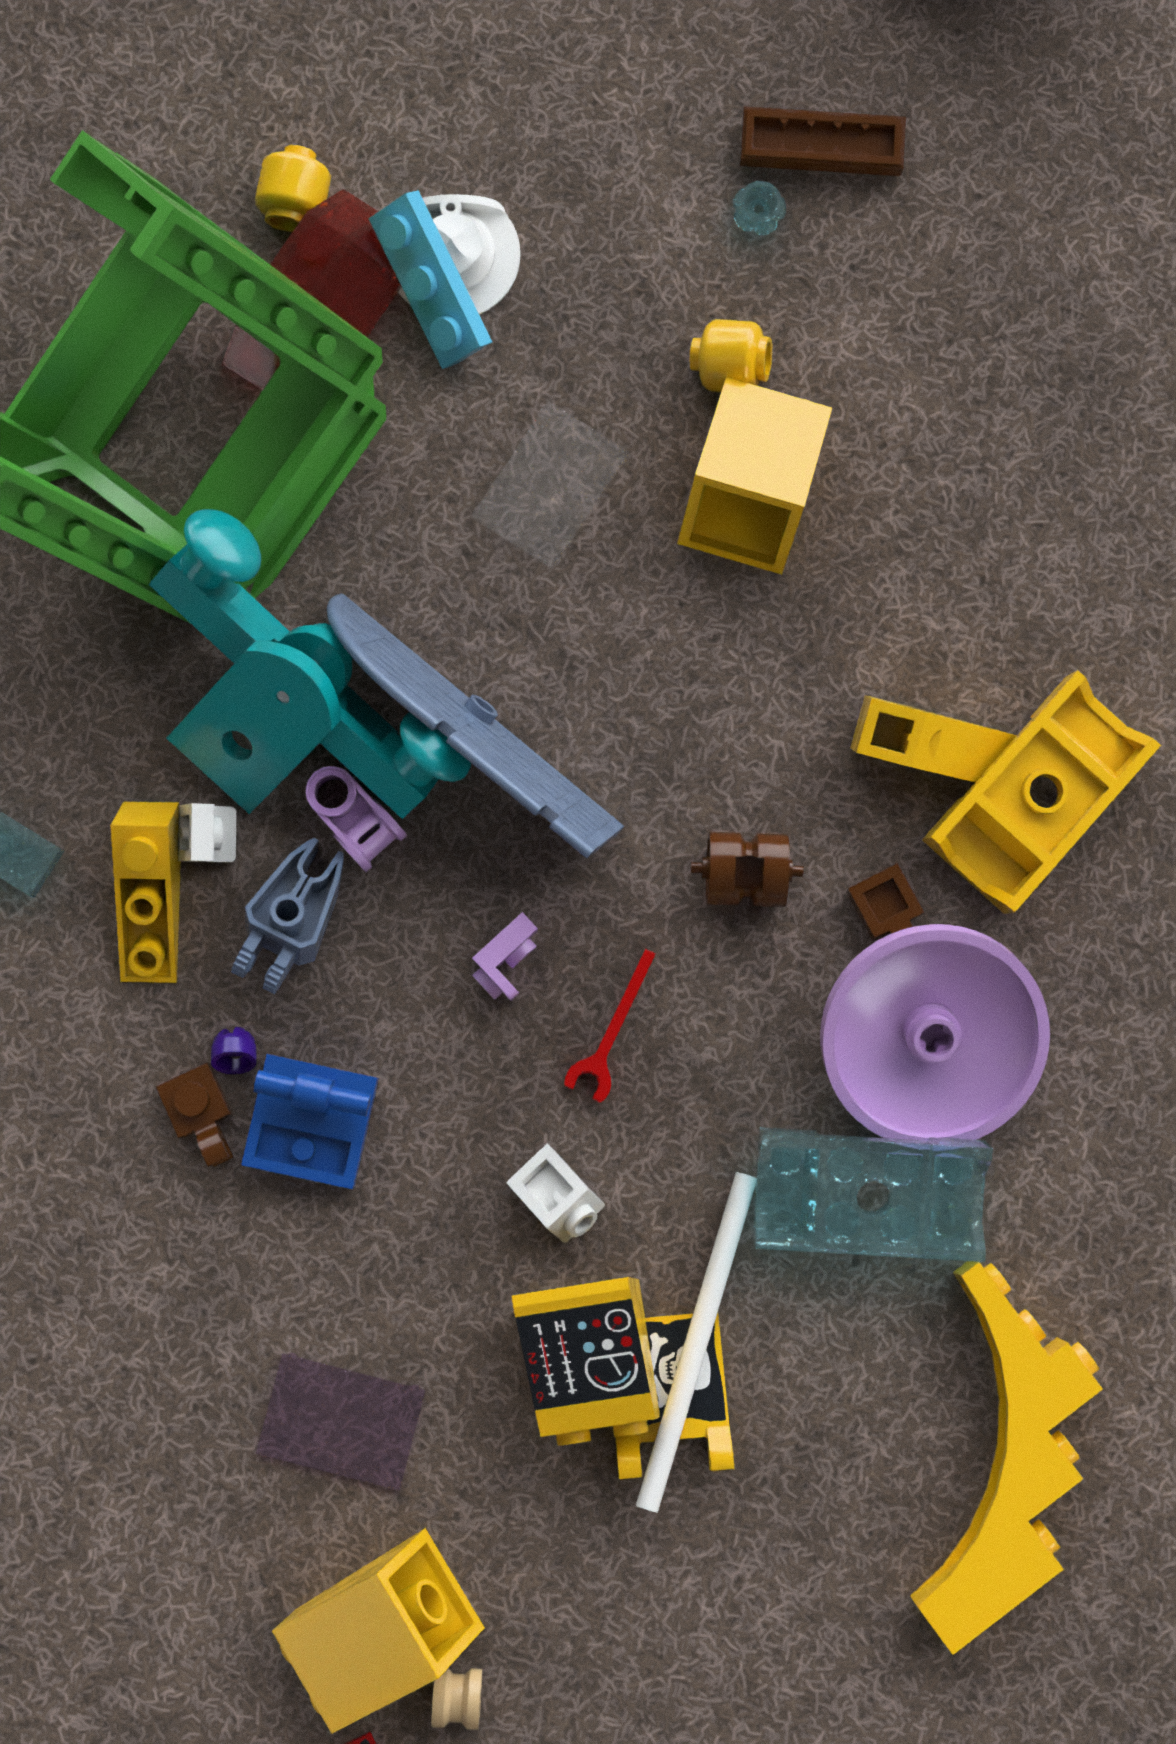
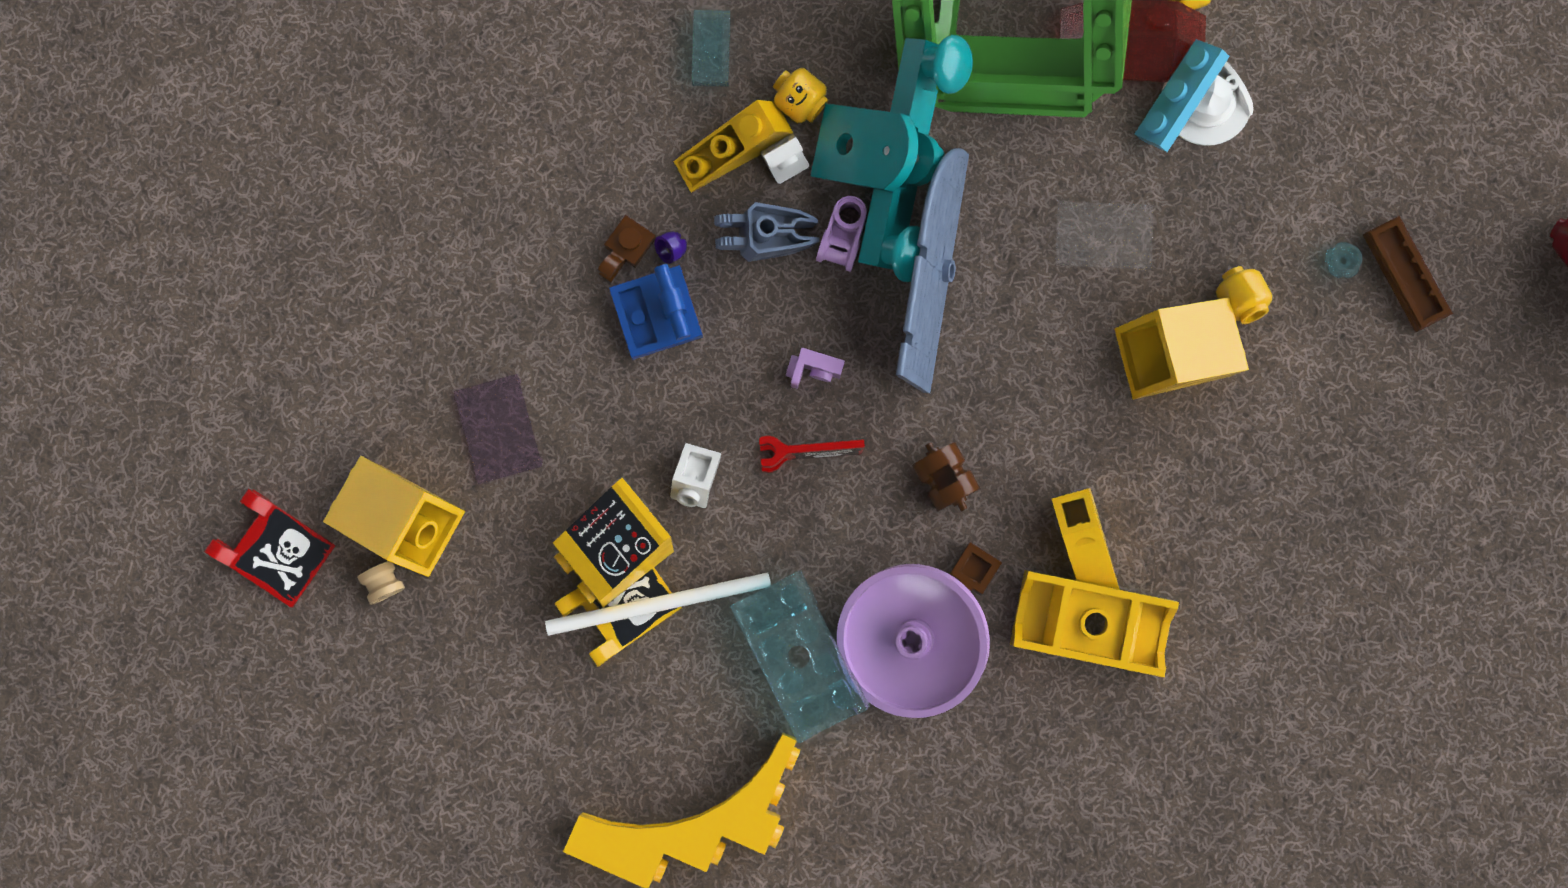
camera: 65 degrees right, 0 degrees up
(135, 765) = (800, 95): none -> yellow head

